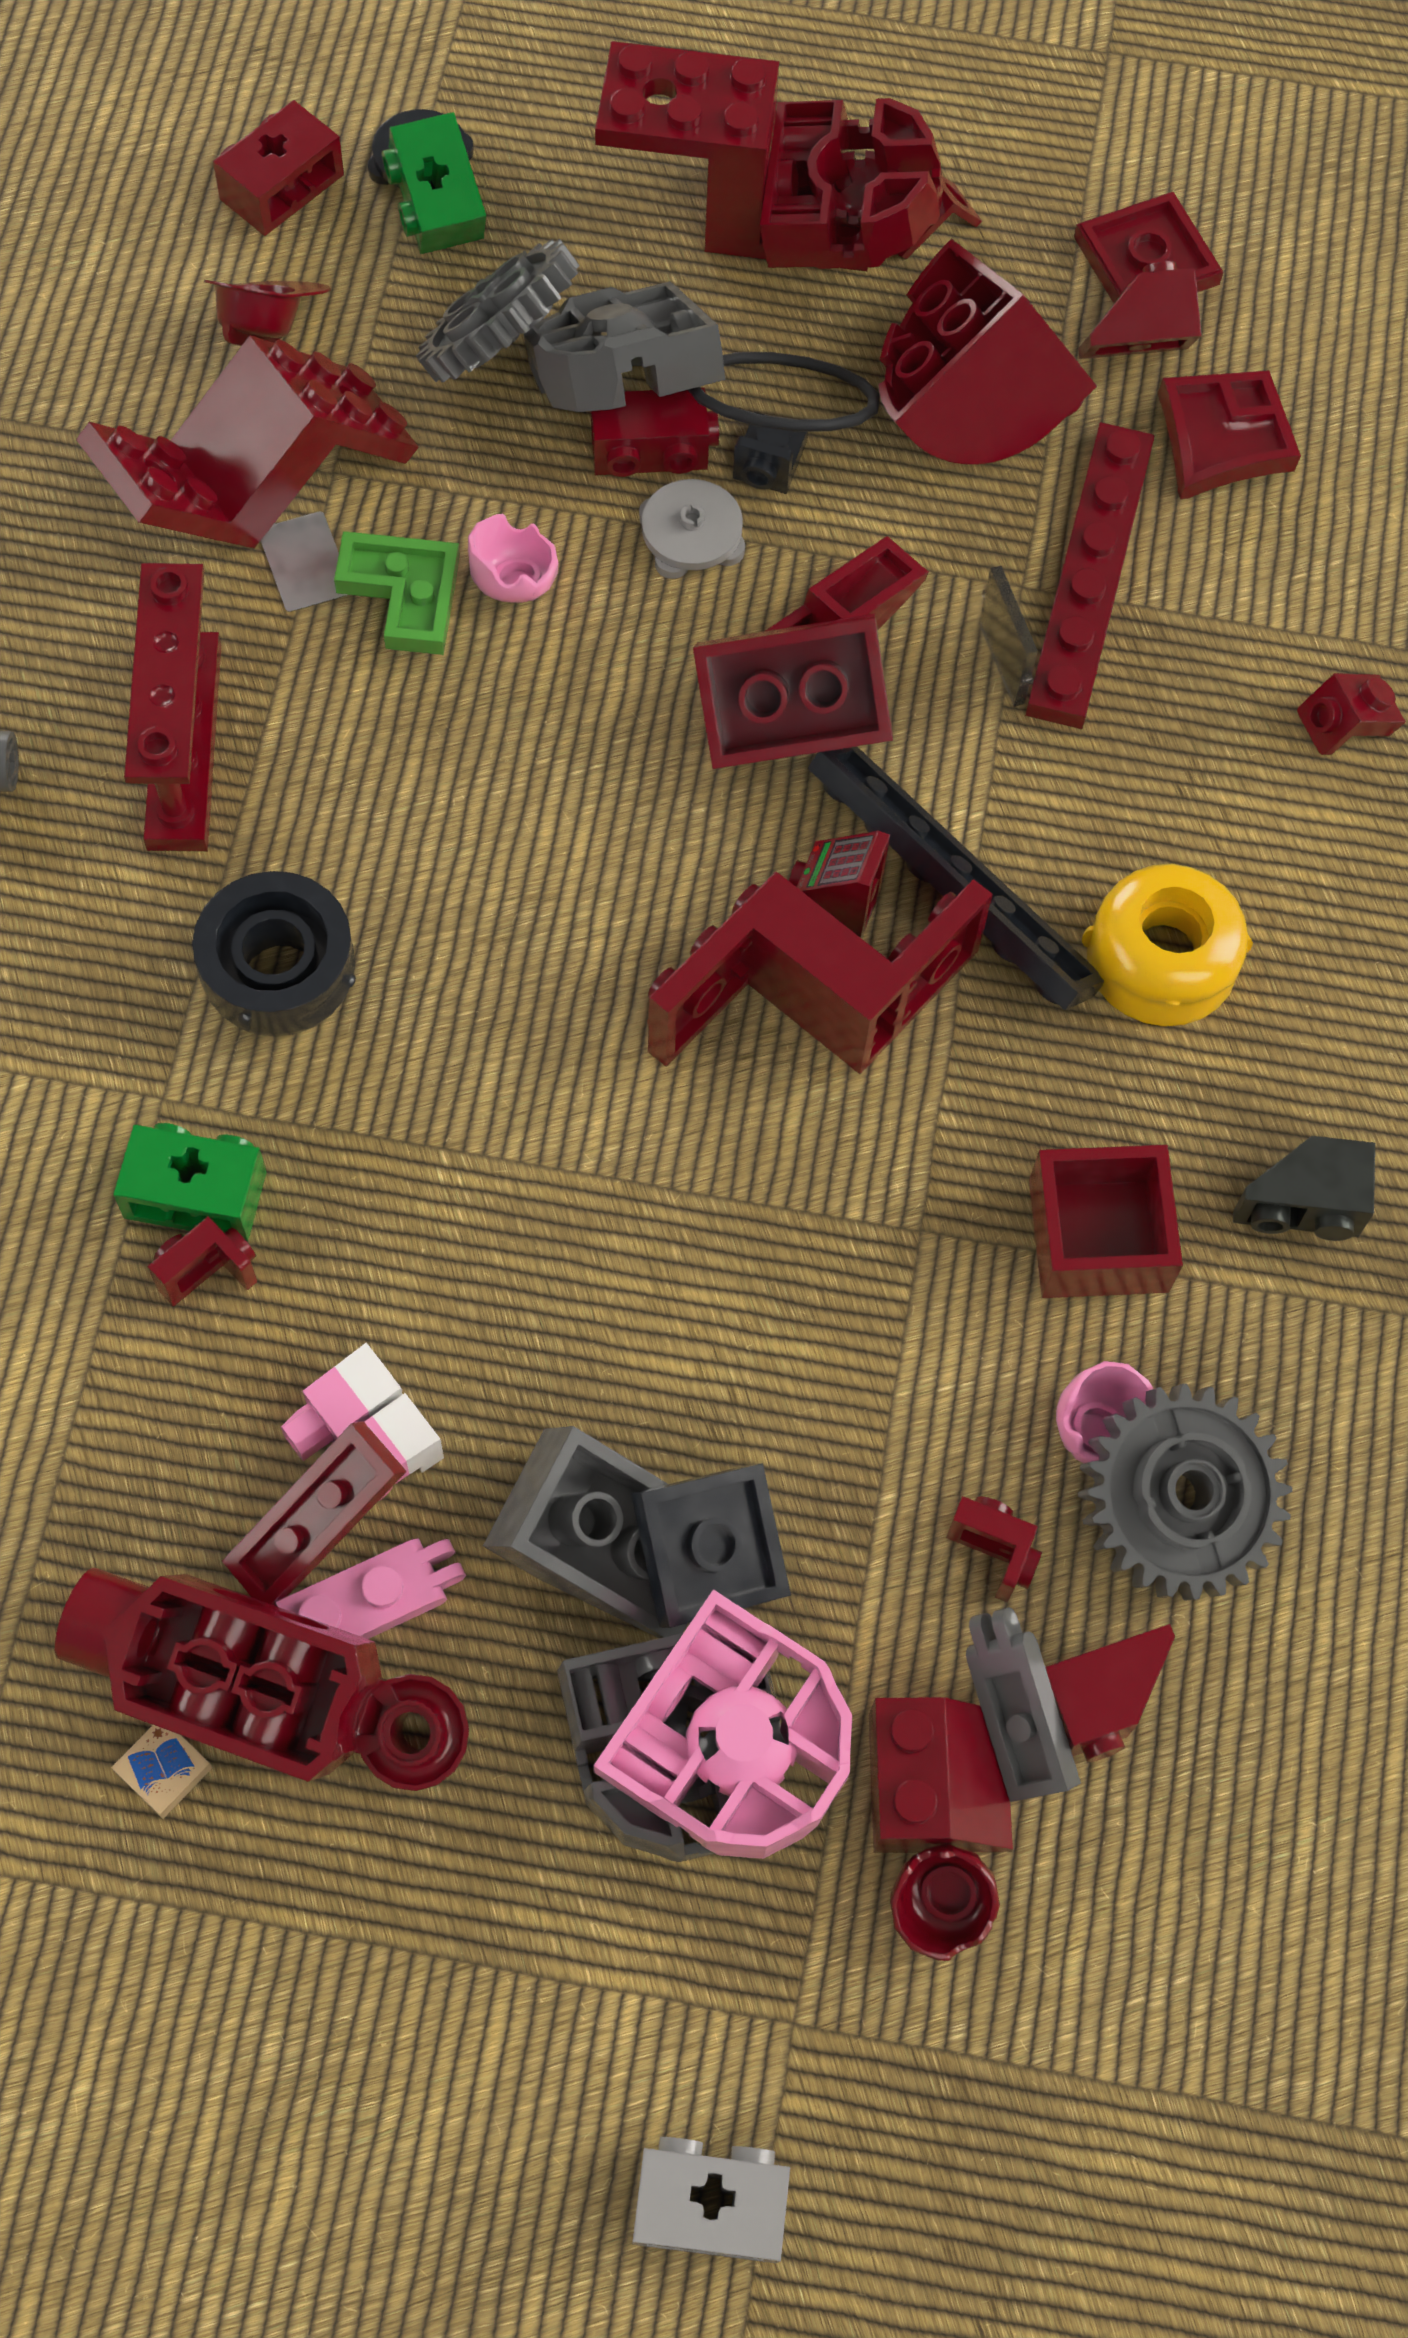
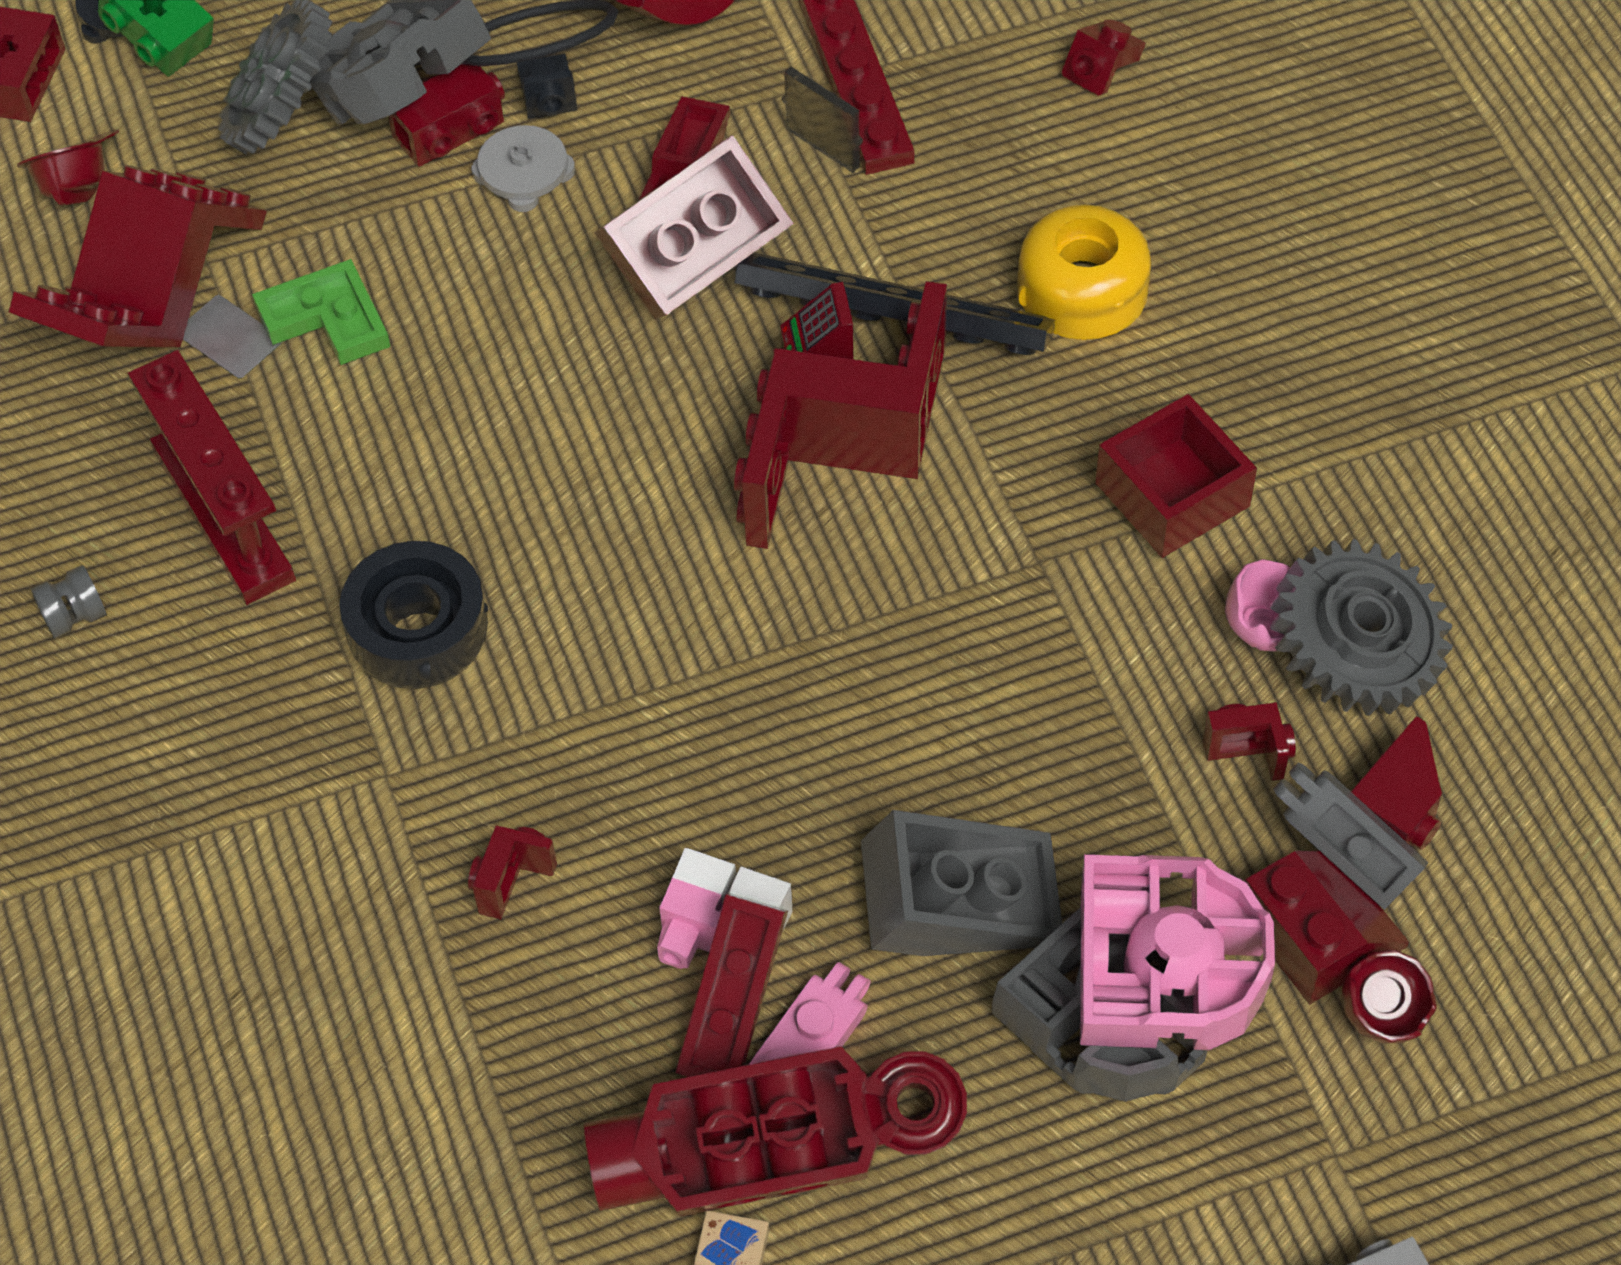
camera: 25 degrees left, 10 degrees down
(164, 1156) = (429, 818): green brick -> none
(510, 561) = (402, 253): bright pink hair -> none
(709, 1537) = (1041, 846): black plate -> none
(1315, 1188) = (1308, 378): pearl dark grey slope -> none

